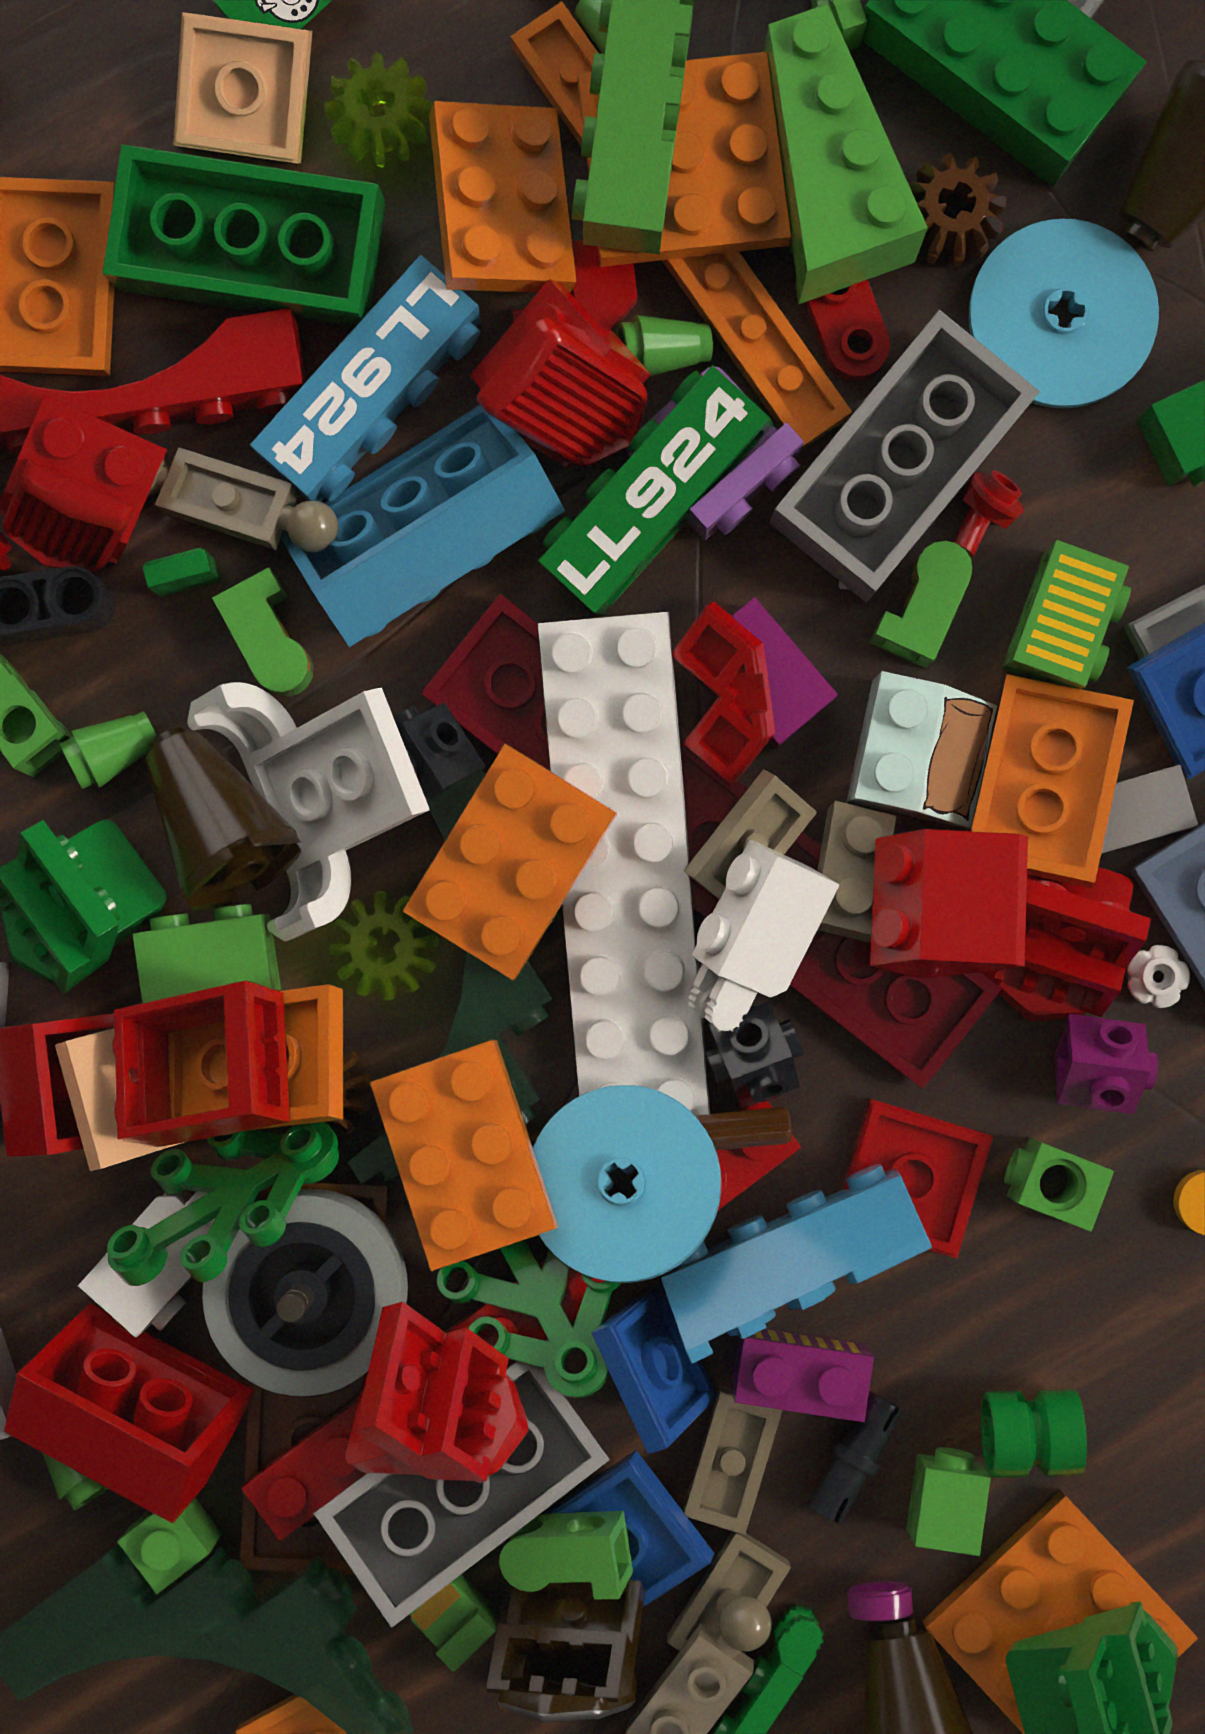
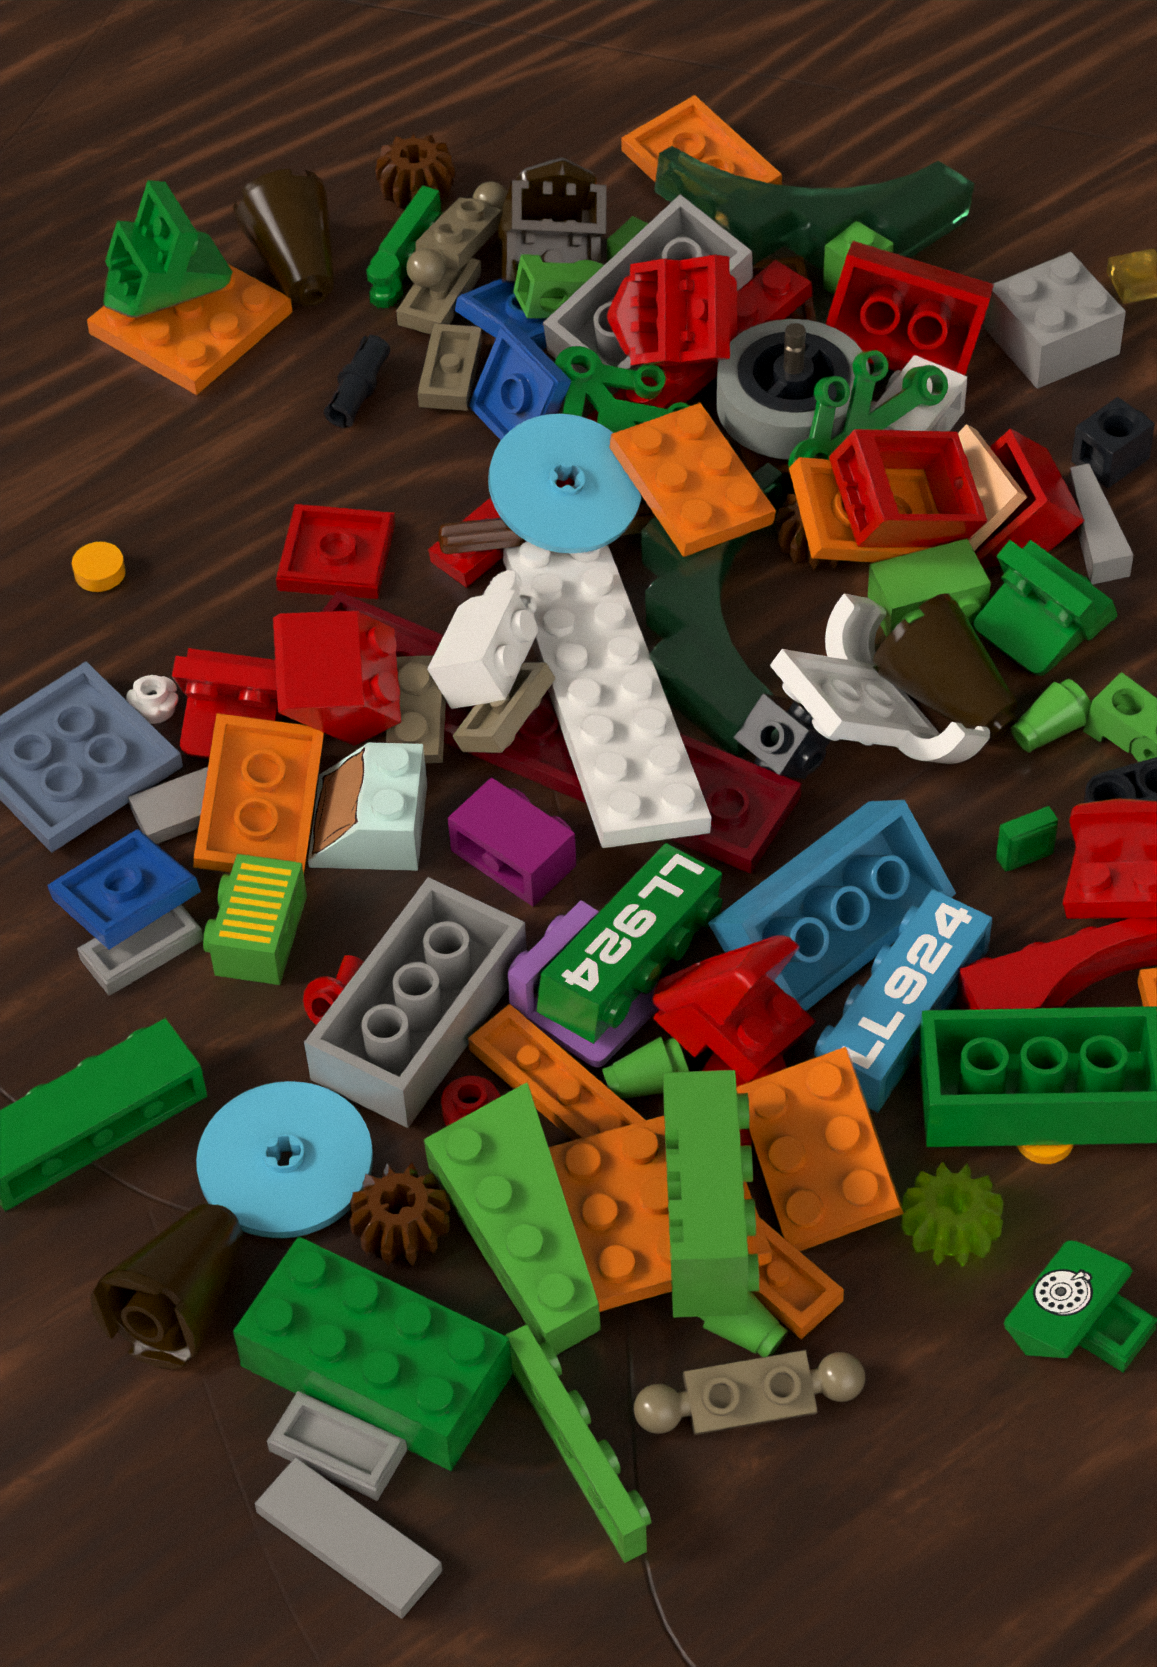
camera: 175 degrees right, 35 degrees down
(241, 503) = (1001, 891): dark tan plate -> none
(242, 87) = (1084, 1211): light nougat tile -> none
(261, 637) = (946, 809): bright green leg -> none
(363, 941) = (787, 618): clear neon green gear -> none
(510, 862) = (697, 659): orange plate -> none
(735, 668) = (532, 794): red tile -> none
(756, 1057) = (457, 579): black brick -> none
(793, 1258) = (421, 470): dark azure wedge -> none
(802, 1374) = (406, 415): magenta brick -> none
(880, 1601) = (326, 305): magenta tile -> none
(937, 586) = (378, 902): bright green leg -> none
(948, 1502) = (283, 362): bright green brick -> none
(1033, 1433) = (225, 404): green wheel -> none
(1084, 1189) = (221, 553): bright green brick -> none
(1103, 1064) = (209, 612): magenta brick -> none

